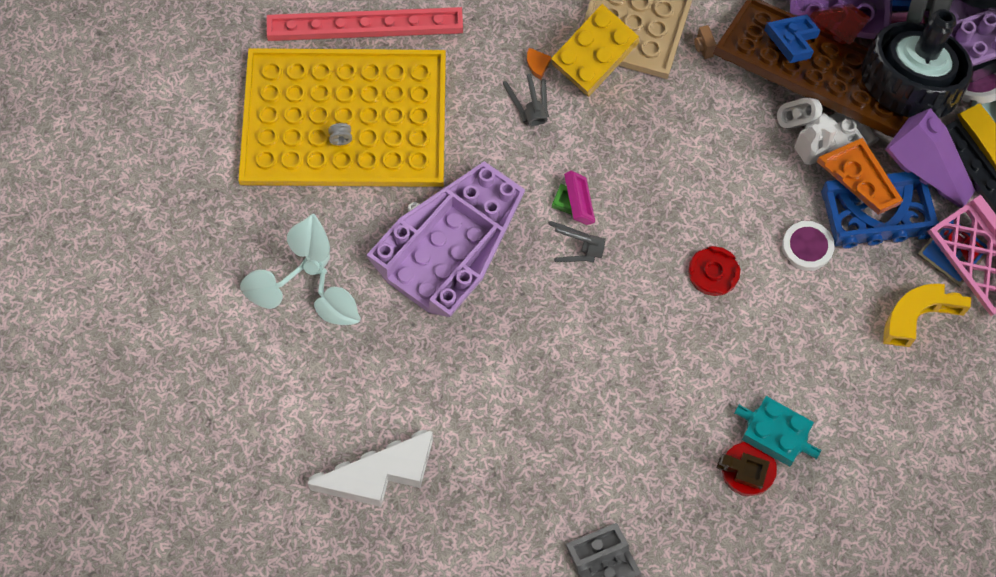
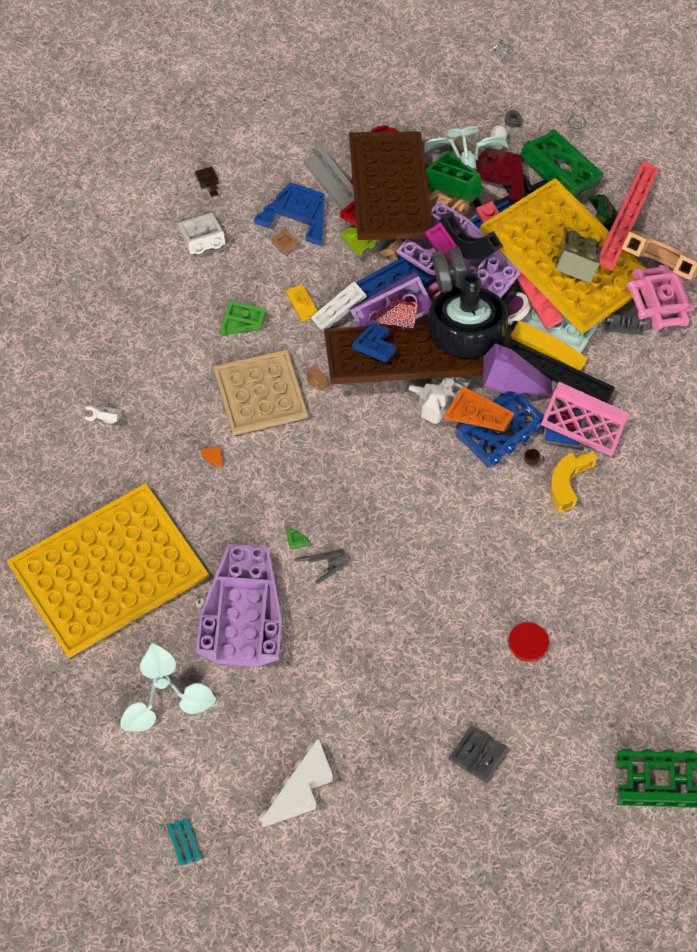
camera: 35 degrees left, 5 degrees down
(207, 447) = (178, 824): none -> teal tile
(340, 134) = (117, 582): light grey bush -> none
(364, 24) = (74, 497): coral plate -> none
(535, 112) = (236, 489): dark grey plant -> none
(579, 198) = (306, 531): dark pink tile -> none
(595, 50) = (250, 425): yellow brick -> none
(714, 280) = (423, 528): red tile -> none
(748, 470) = (529, 641): dark brown plate -> none
(778, 431) = (530, 607): teal plate -> none
(799, 113) = (411, 390): white plate -> none
(808, 245) = (471, 477): tile -> none
(894, 263) = (532, 457): none -> dark brown hinge

